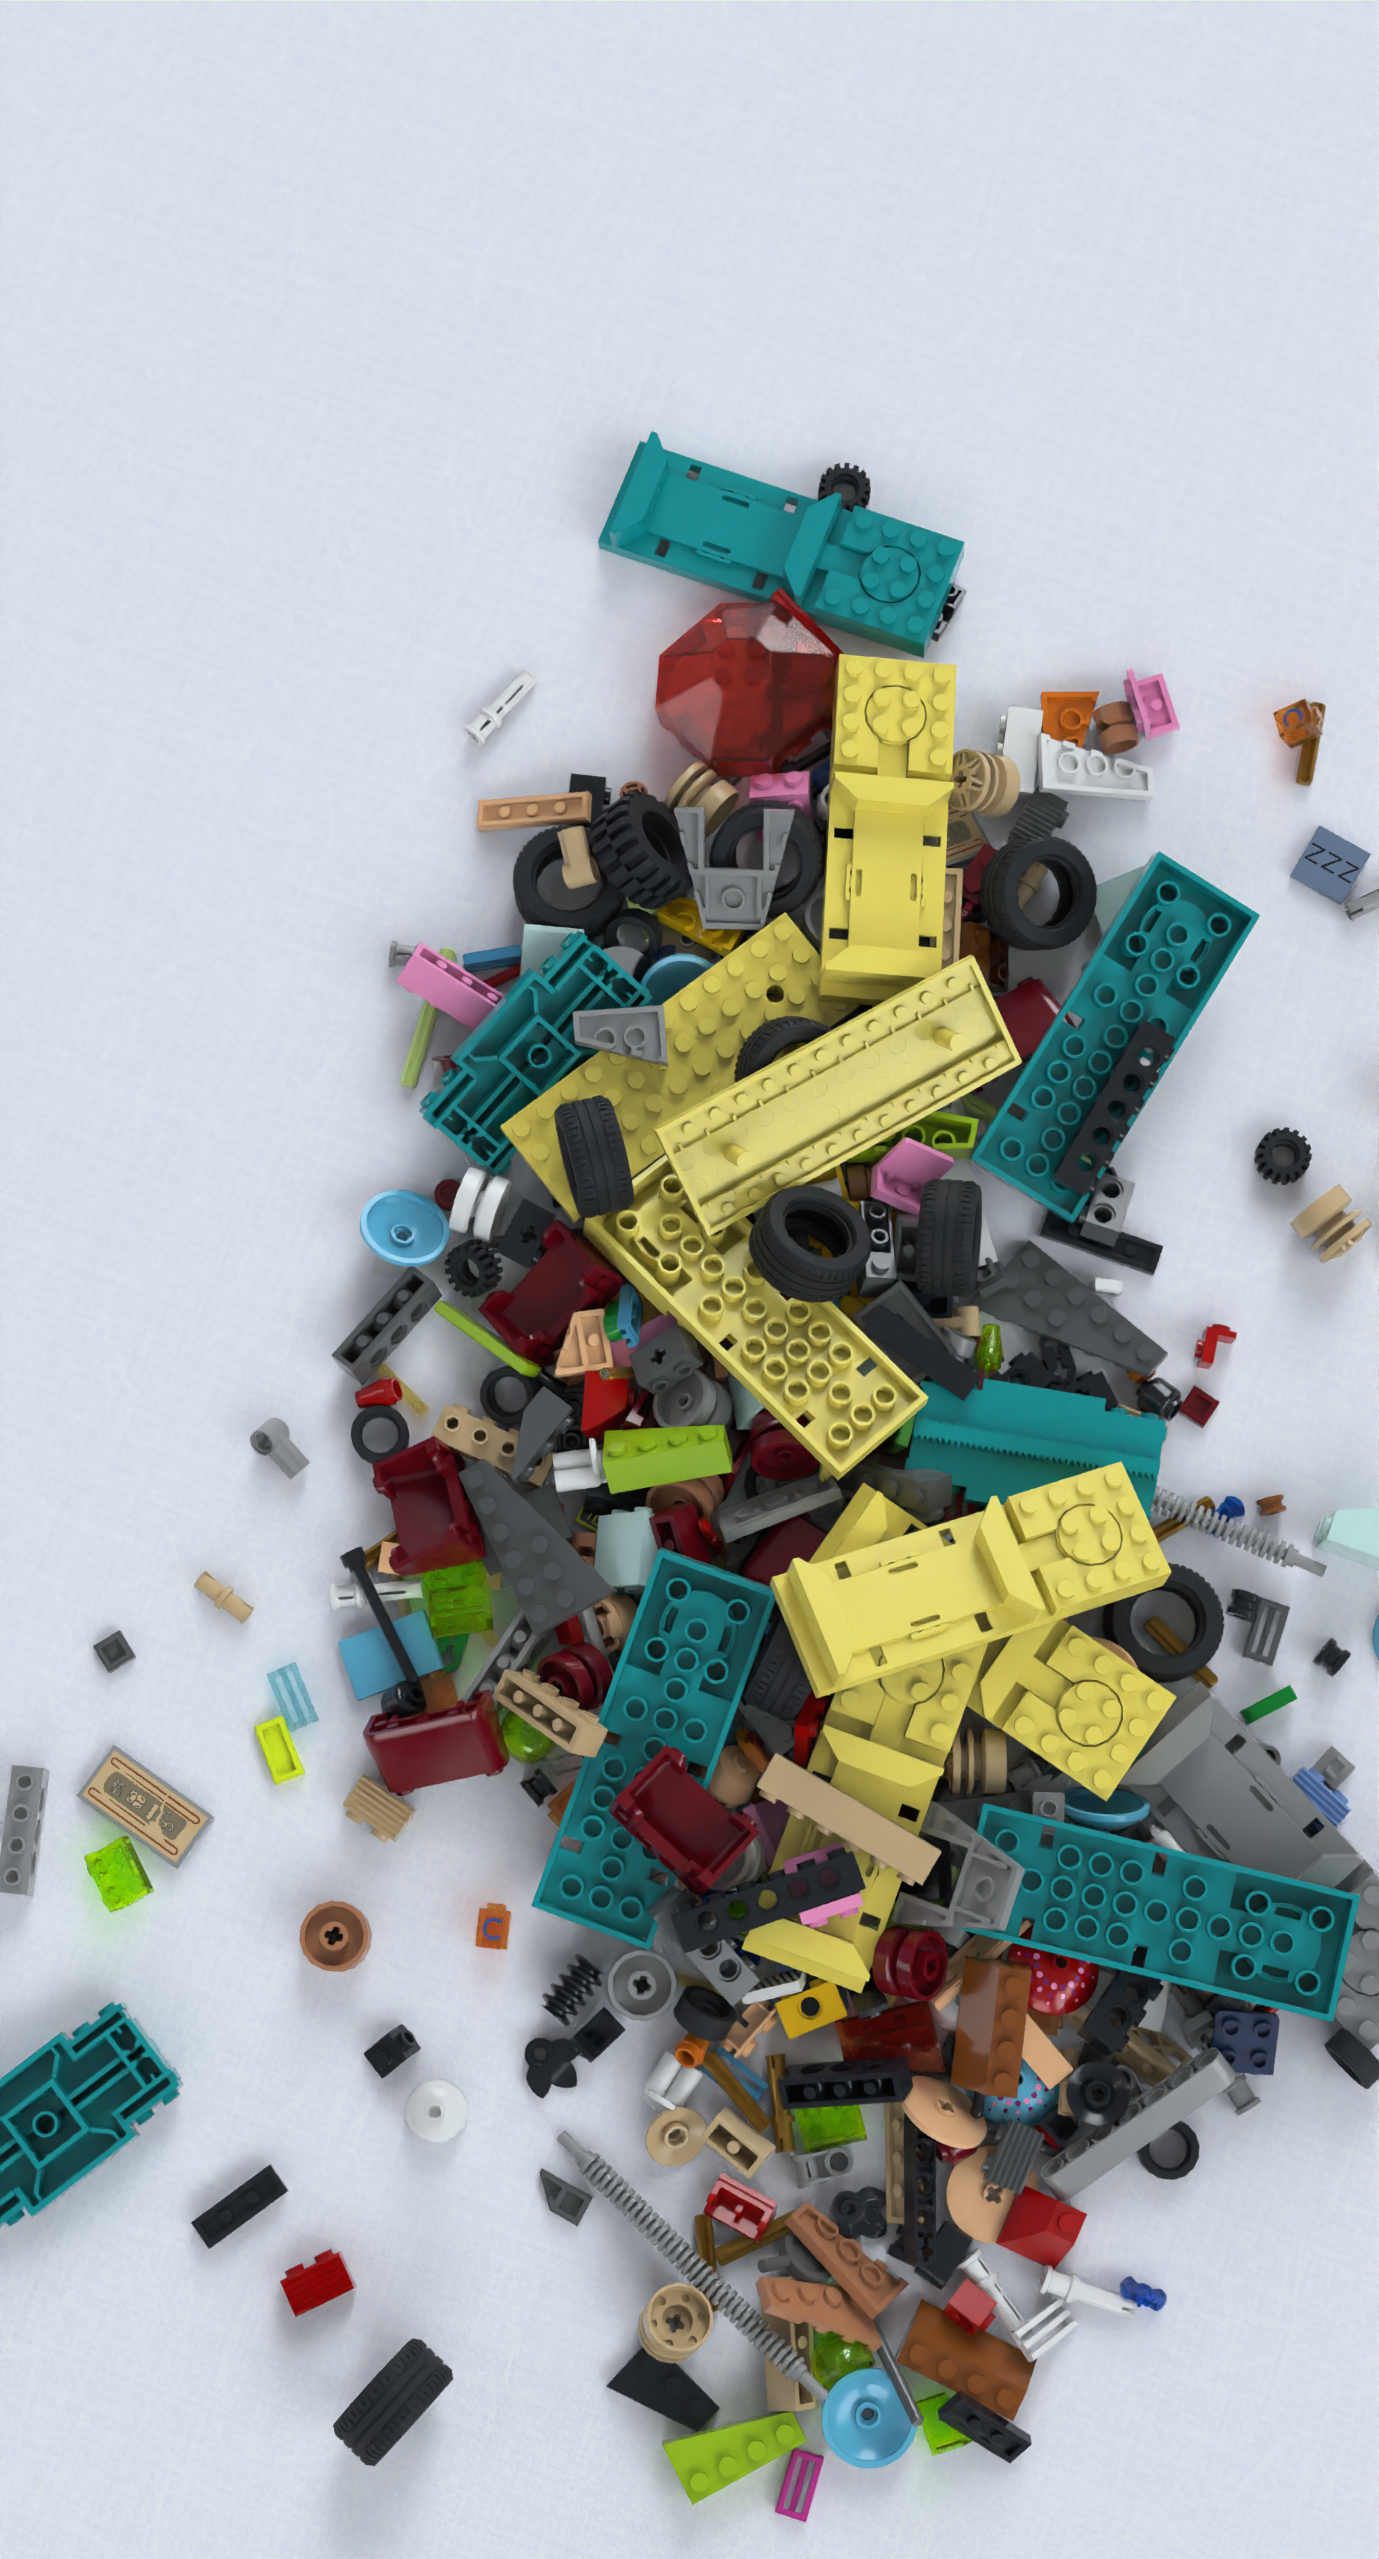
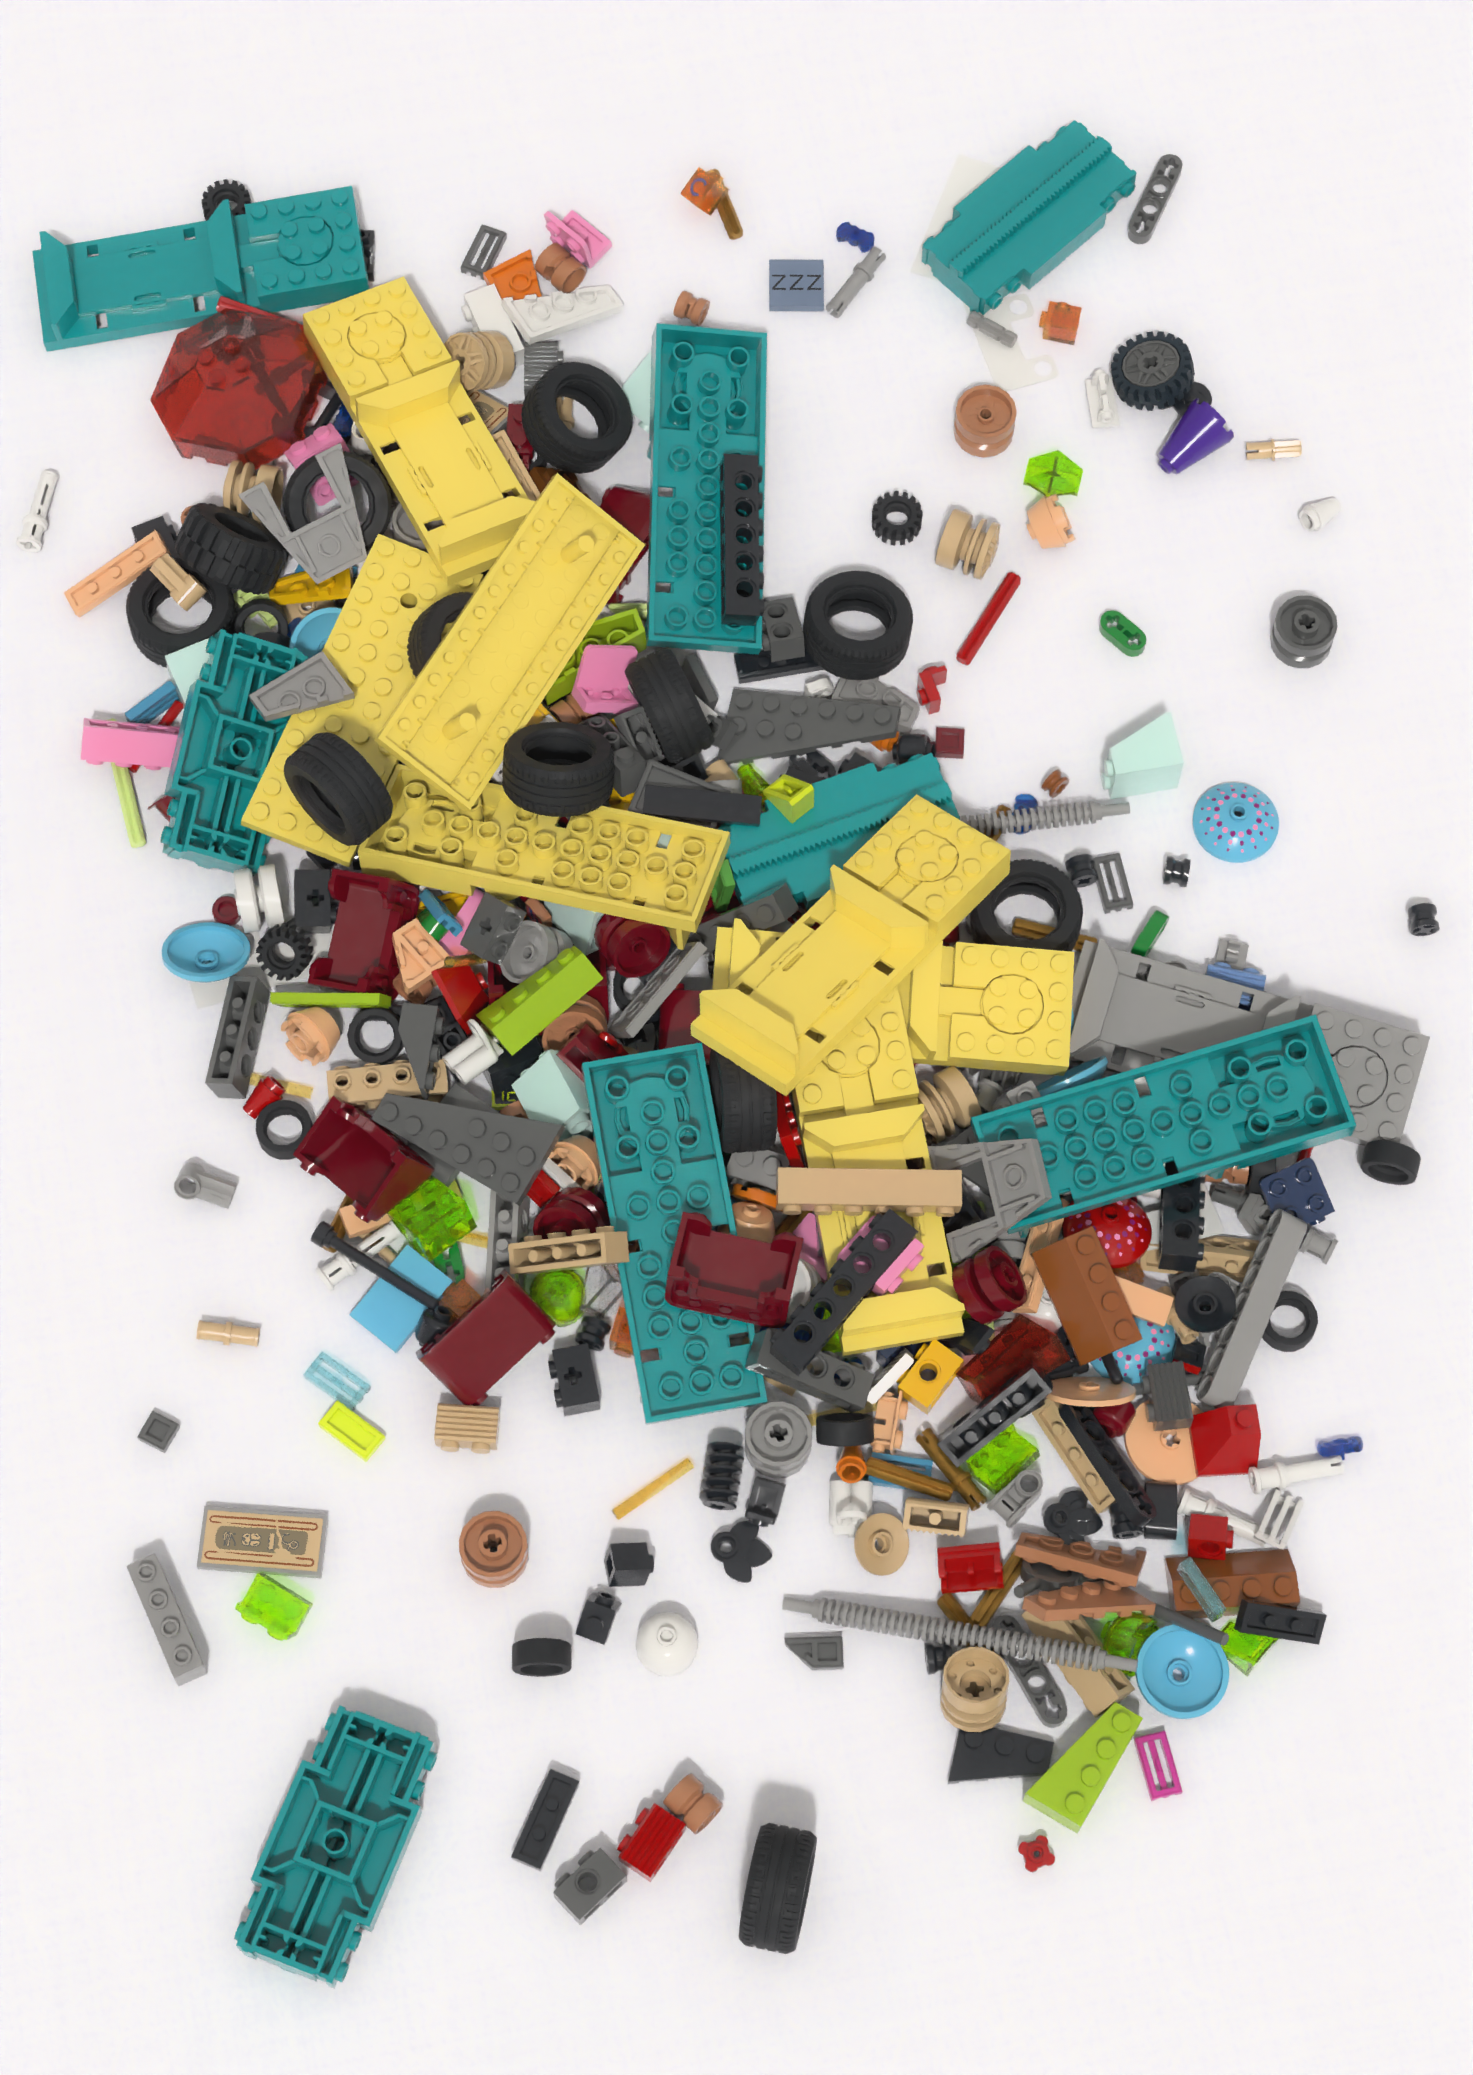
camera: 30 degrees left, 10 degrees down
(225, 2299) = (582, 1903): none -> dark grey brick
(318, 2061) = (541, 1657): none -> black tyre
(372, 2272) = (689, 1800): none -> nougat wheel
(397, 950) = (70, 744): light grey bush -> none
(443, 2021) = (628, 1564): none -> black brick
(453, 1360) = (311, 1034): none -> light nougat cone
(493, 1927) = (624, 1467): clear orange brick -> none
(497, 1840) = (574, 1362): none -> black brick
(506, 1961) = (652, 1489): none -> clear yellow bar
(650, 2491) = (1028, 1849): none -> red plate
(663, 2270) = (936, 1656): none -> black wheel
(731, 2331) = (1034, 1669): none -> dark grey beam
(927, 2361) = (1201, 1589): none -> clear light blue tile
(1000, 1217) = (698, 681): none -> dark grey tile
(1007, 1389) = (790, 796): none -> neon yellow slope
(1037, 683) = (476, 269): none -> dark grey tile
(1150, 1312) = (875, 692): none -> light grey wing
(1206, 1219) = (862, 593): none -> black tyre
(1216, 835) = (691, 308): none -> nougat wheel
(1309, 1304) = (988, 618): none -> red axle

